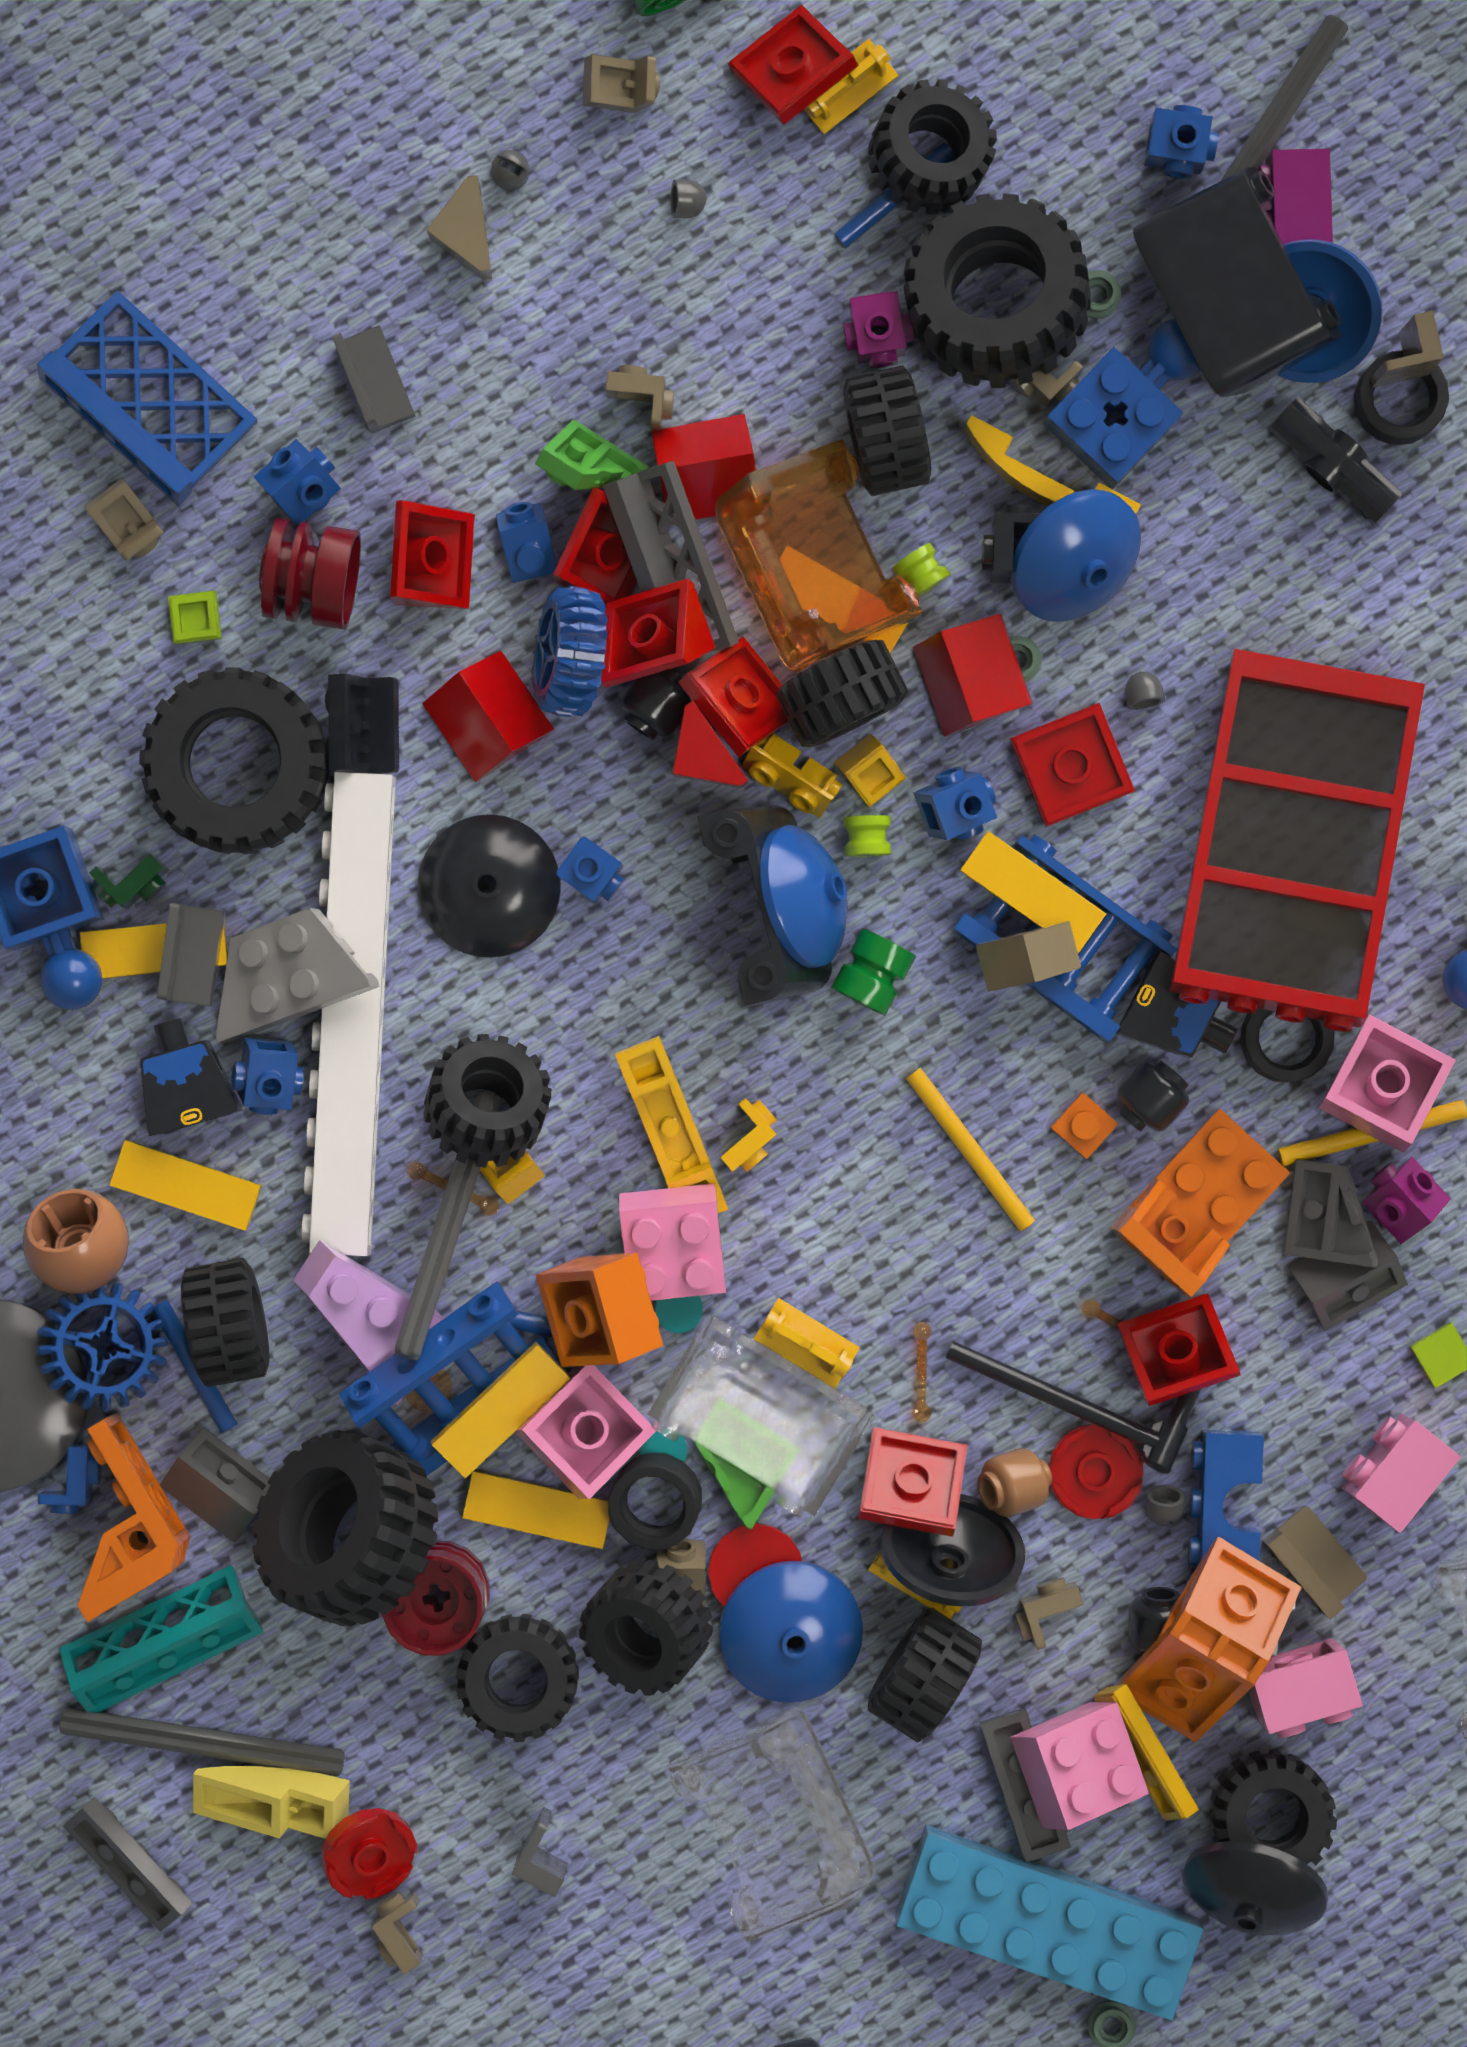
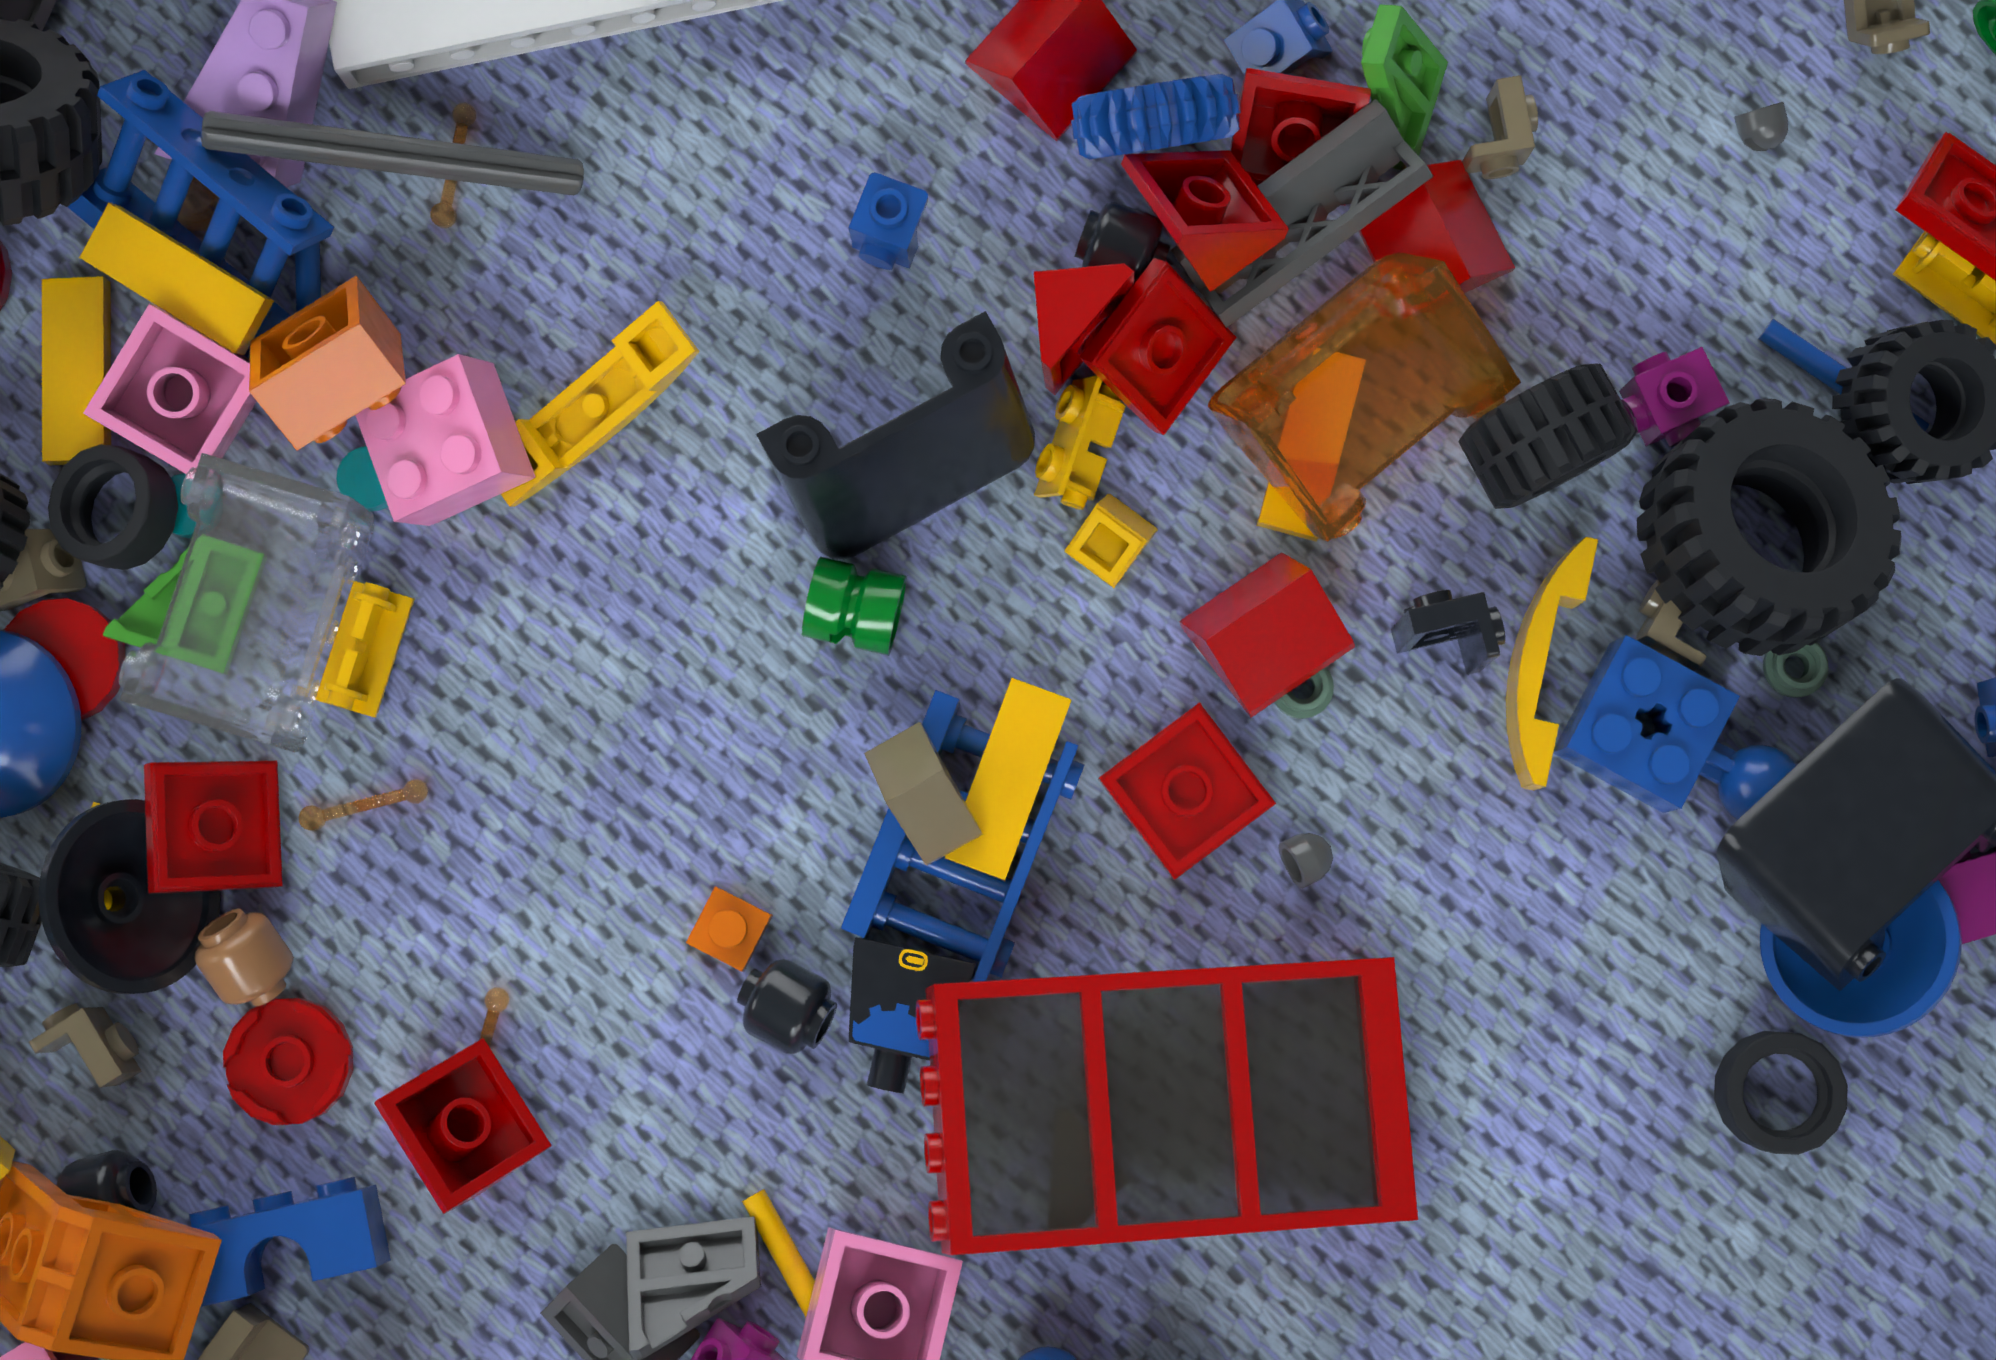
camera: 75 degrees right, 5 degrees down
(494, 921) = (835, 148): black dish -> none
(494, 1068) = (604, 140): black tyre -> none
(514, 1177) = (495, 225): yellow slope -> none
(750, 1148) = (591, 510): yellow bracket -> none
(803, 895) = (922, 482): blue dish -> none
(842, 693) = (1197, 466): black tyre -> none
(867, 836) = (1026, 554): lime wheel -> none
(922, 569) = (1381, 534): lime wheel -> none
(956, 804) = (1096, 634): blue brick -> none
(970, 1149) = (661, 792): yellow bar -> none
(1076, 555) = (1470, 700): blue dish -> none
(1159, 1442) = (339, 1133): black bar -> none
(1165, 1504) = (277, 1155): dark grey hinge -> none
(1200, 1202) = (660, 1100): orange bracket -> none
(1281, 1073) = (861, 1170): black tyre -> none
(1335, 461) = (1673, 1027): black piece -> none
(1420, 351) = (1849, 1095): dark tan panel -> none

